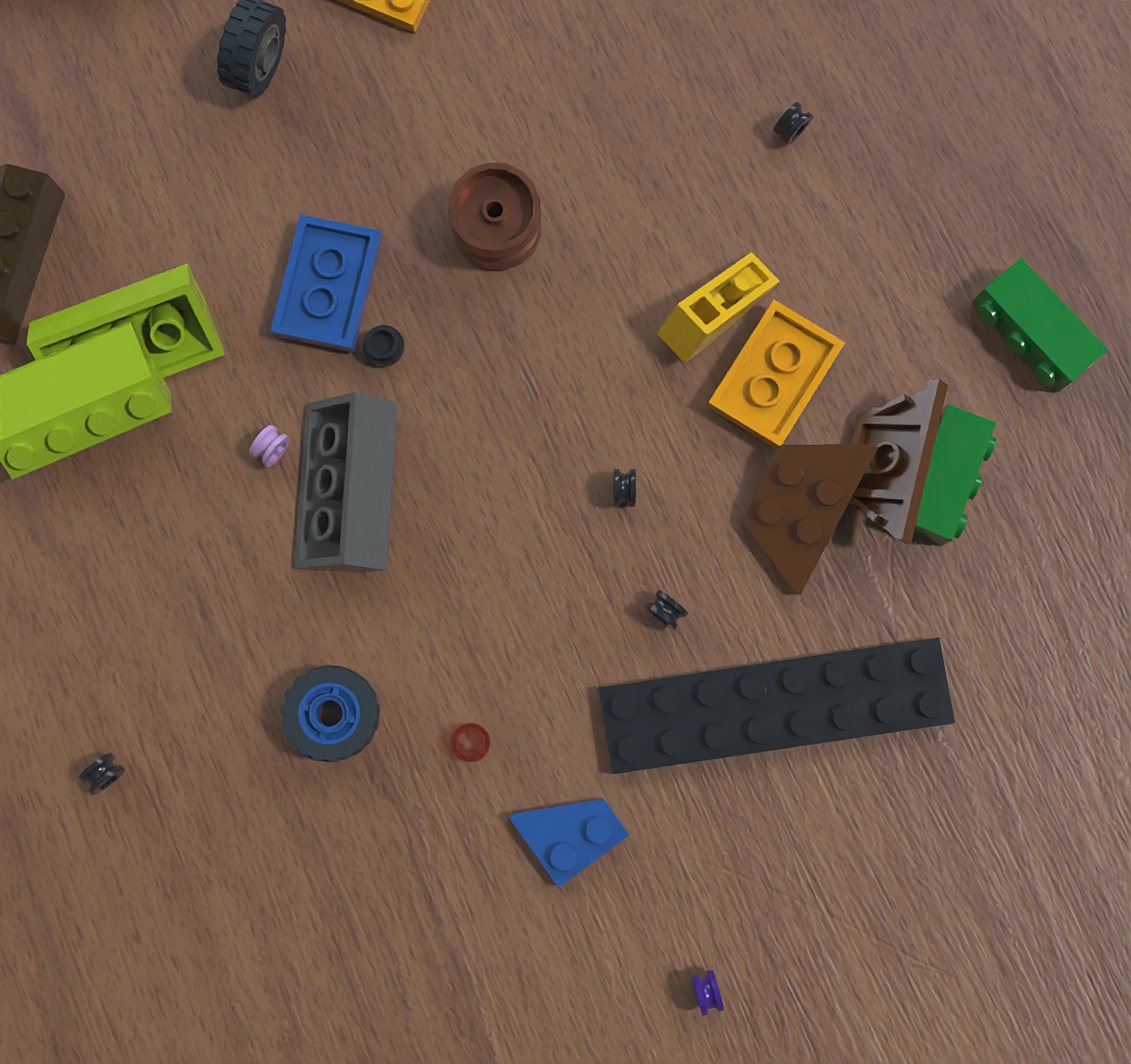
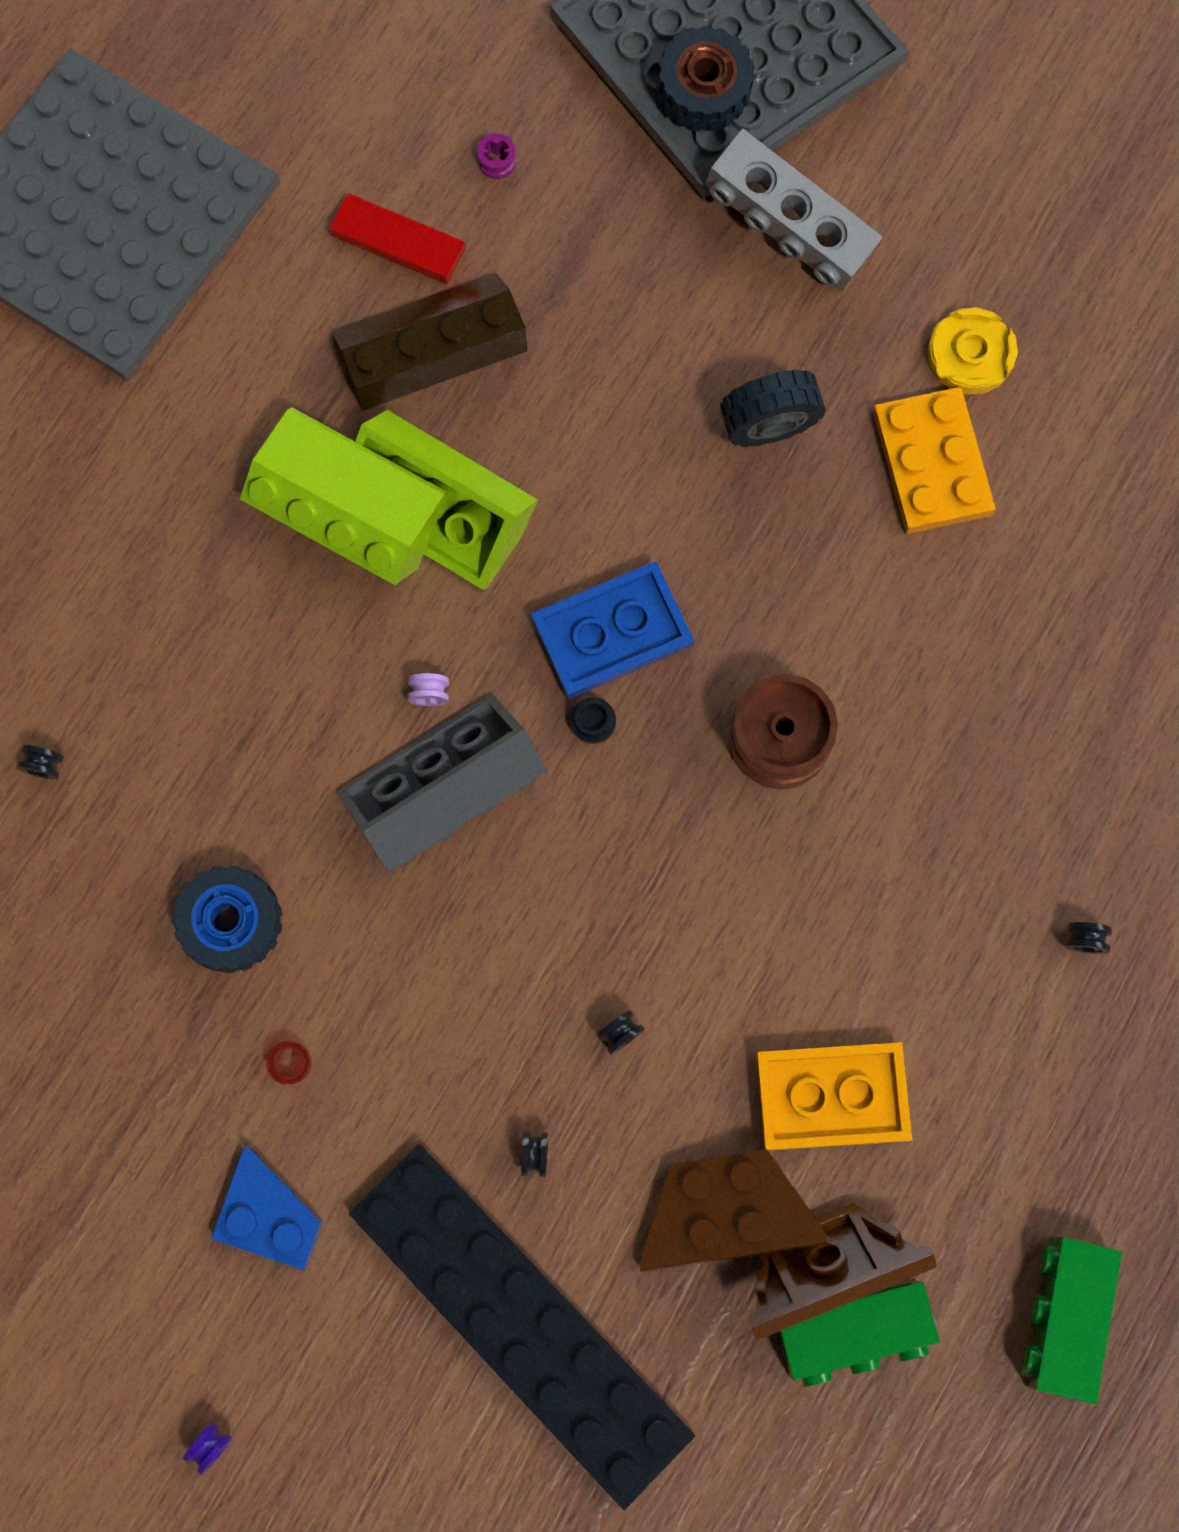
camera: 55 degrees right, 5 degrees down
(716, 307) = (856, 994): yellow slope -> none

